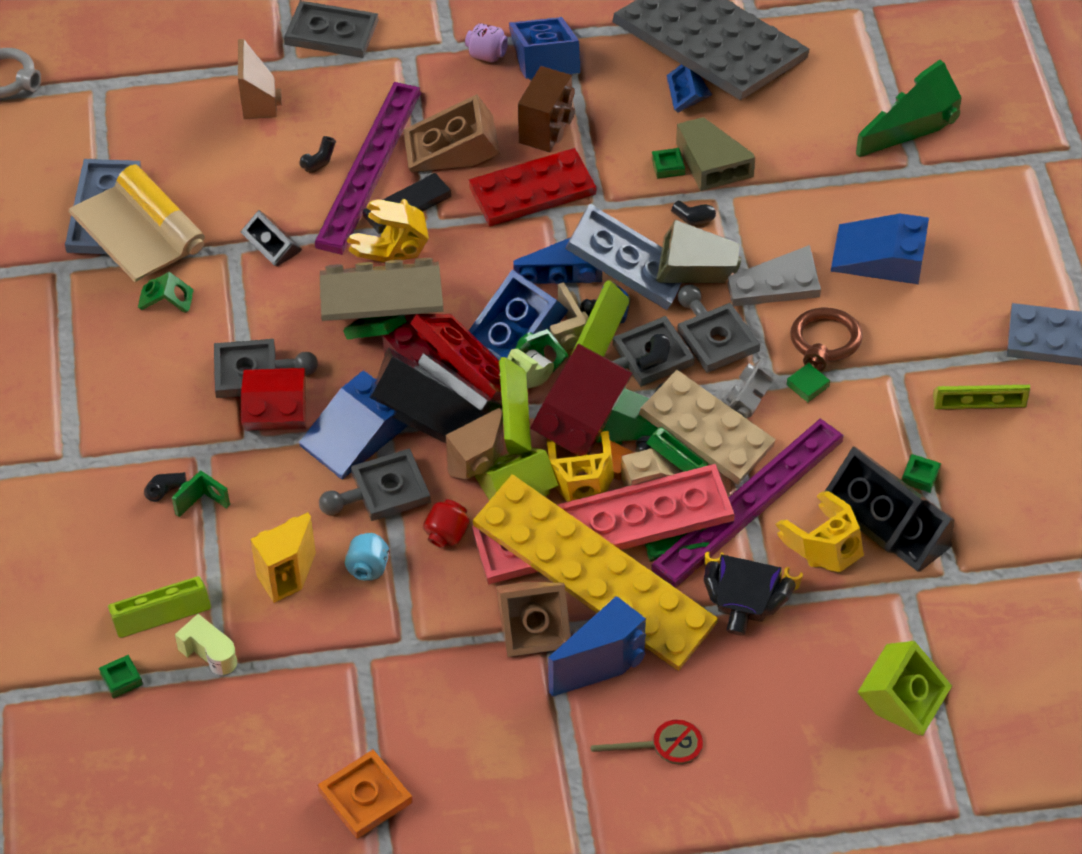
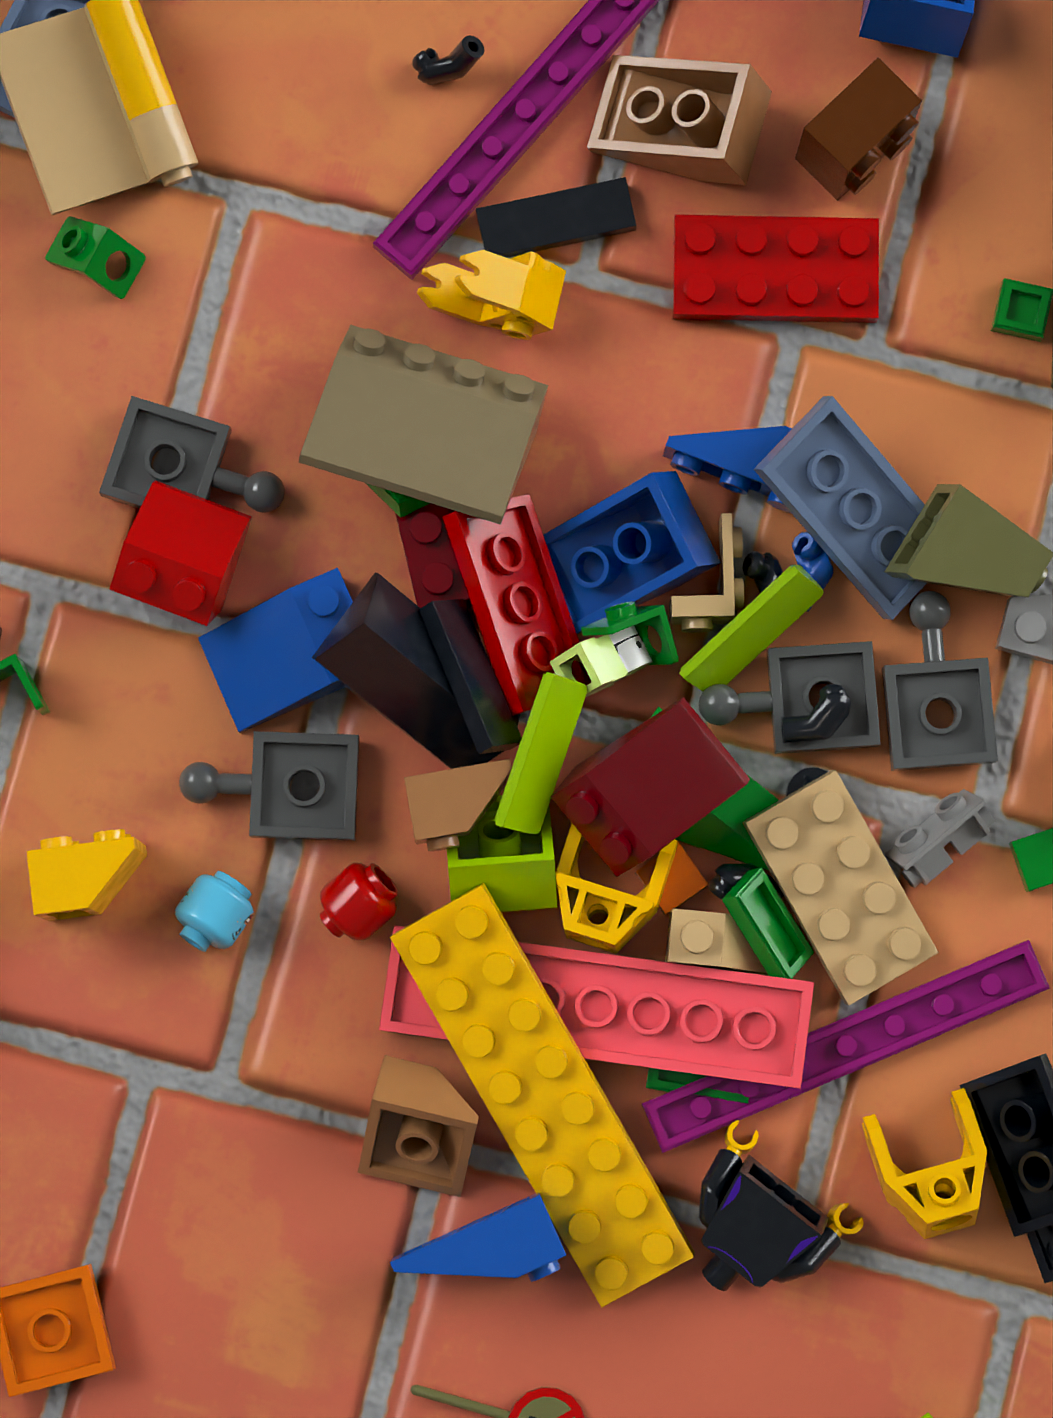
camera: 20 degrees right, 30 degrees up
(270, 239) = (308, 202): black slope -> none
(694, 215) = (1015, 443): black arm -> none

